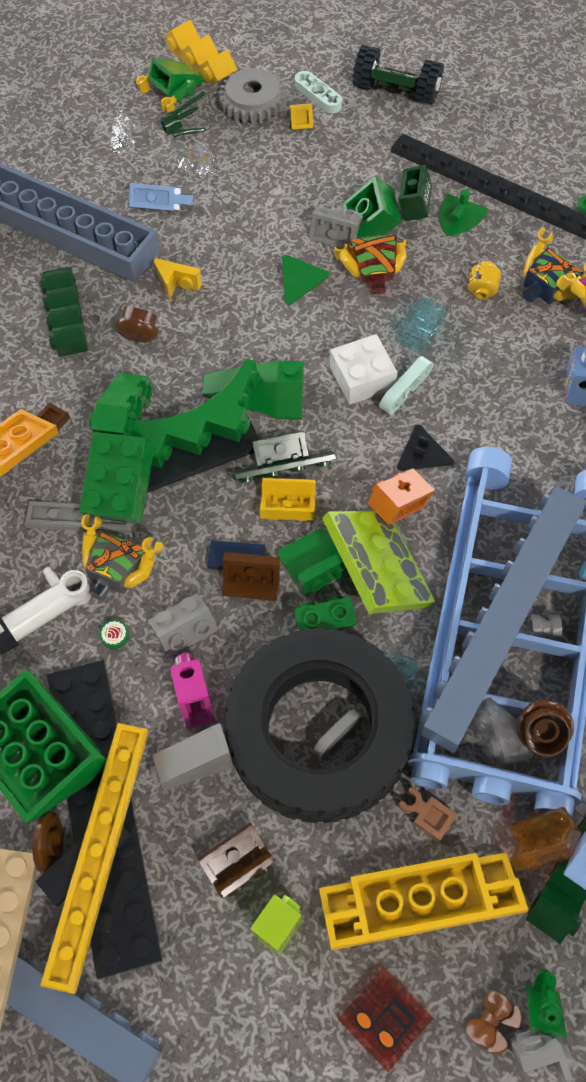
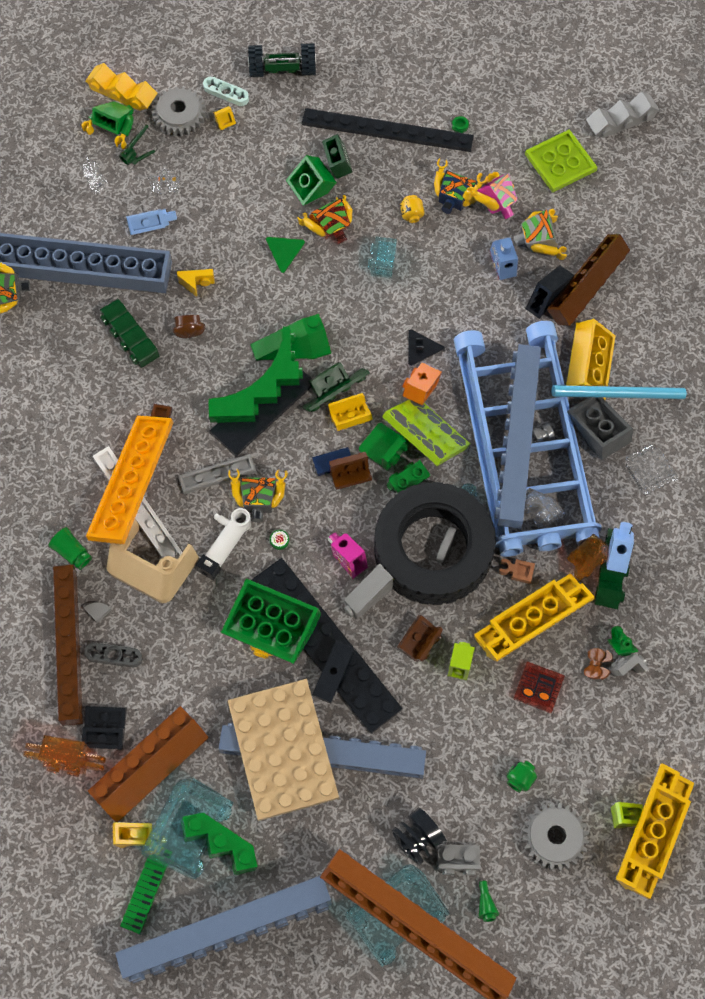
camera: 25 degrees left, 5 degrees up
(47, 841) = (307, 671): reddish brown wheel -> none
(95, 860) = (341, 665): yellow tile -> none
(117, 477) = (236, 439): green brick -> none
(121, 404) = (212, 389): green brick -> none
(183, 624) = (320, 516): light grey bracket -> none
(334, 225) = (291, 201): light grey bracket -> none
(362, 369) = (358, 304): white brick -> none
(408, 381) = (392, 302): light aqua beam -> none
(459, 214) = (372, 160): green shield -> none
(545, 727) = (566, 493): reddish brown piece -> none

